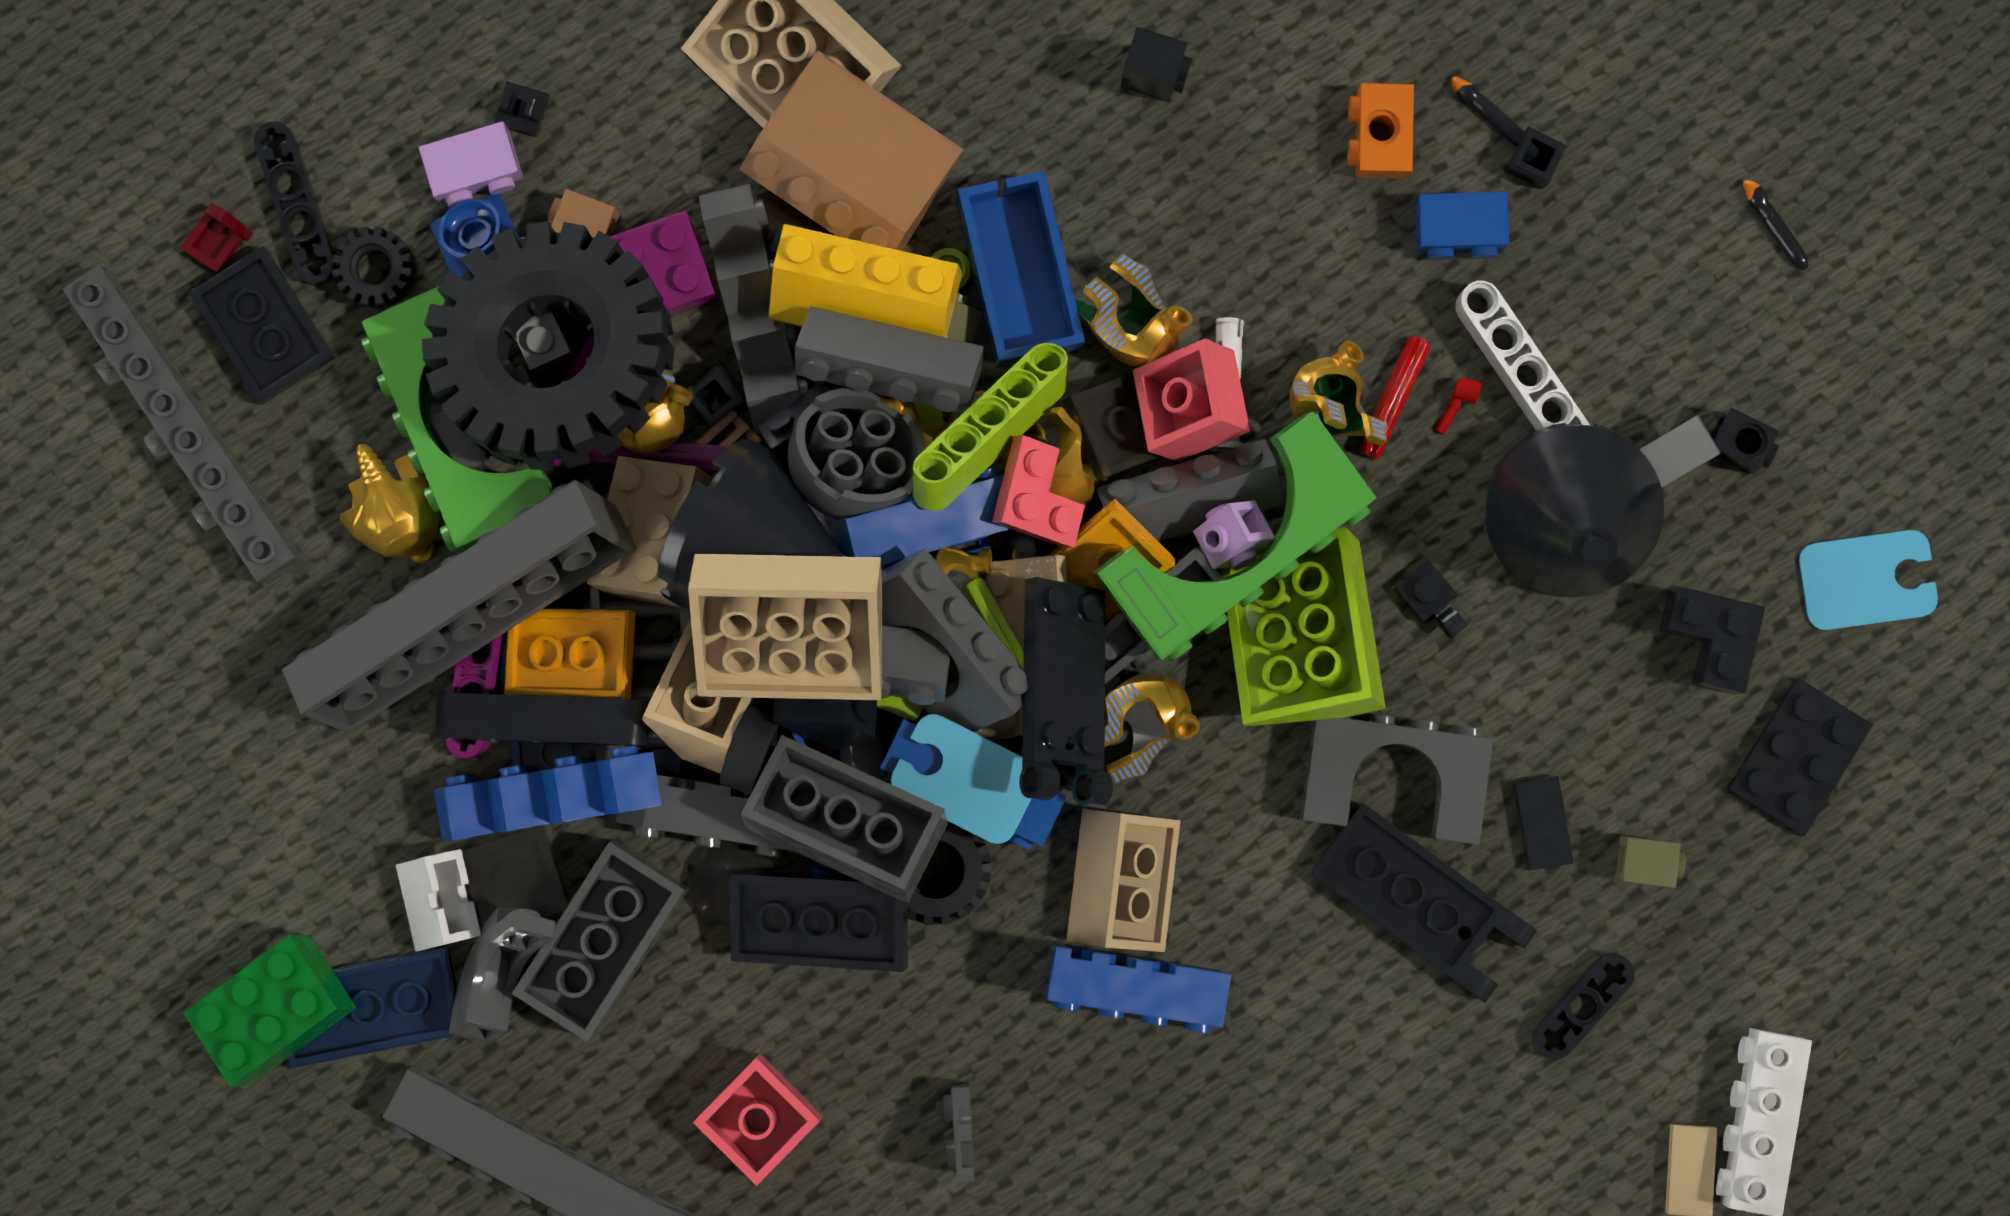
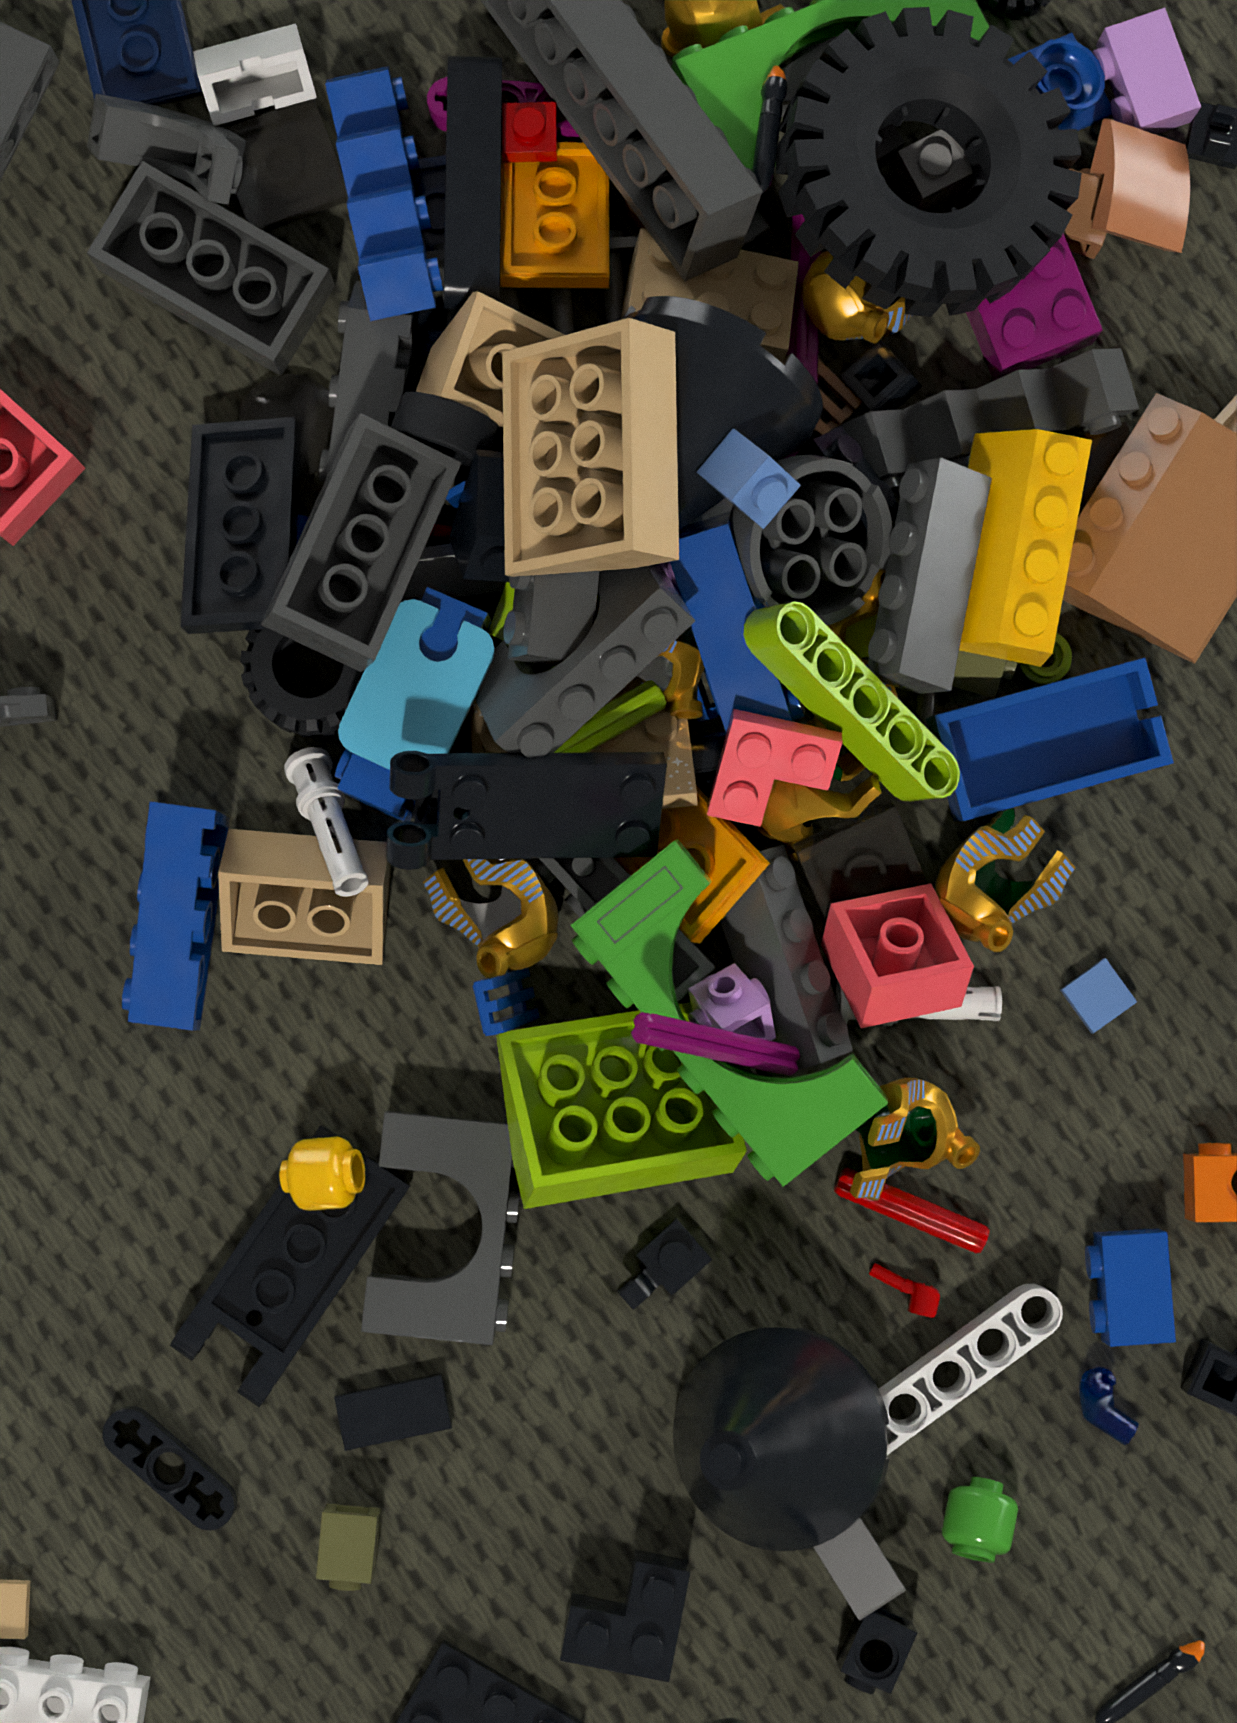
camera: 85 degrees right, 0 degrees up
(487, 469) = (773, 95): none -> black piece
(500, 672) = (529, 132): none -> red plate
(566, 171) = (1142, 186): none -> nougat slope
(813, 500) = (748, 478): none -> medium blue brick
(1106, 843) = (344, 867): none -> white pin
(1216, 713) = (516, 999): none -> blue tile
(1225, 239) = (1098, 995): none -> medium blue tile
(1262, 546) = (715, 1043): none -> magenta axle
(1351, 871) = (323, 1173): none -> yellow head
(1557, 254) = (1099, 1406): none -> clear blue arm
(1643, 354) = (980, 1520): none -> bright green head

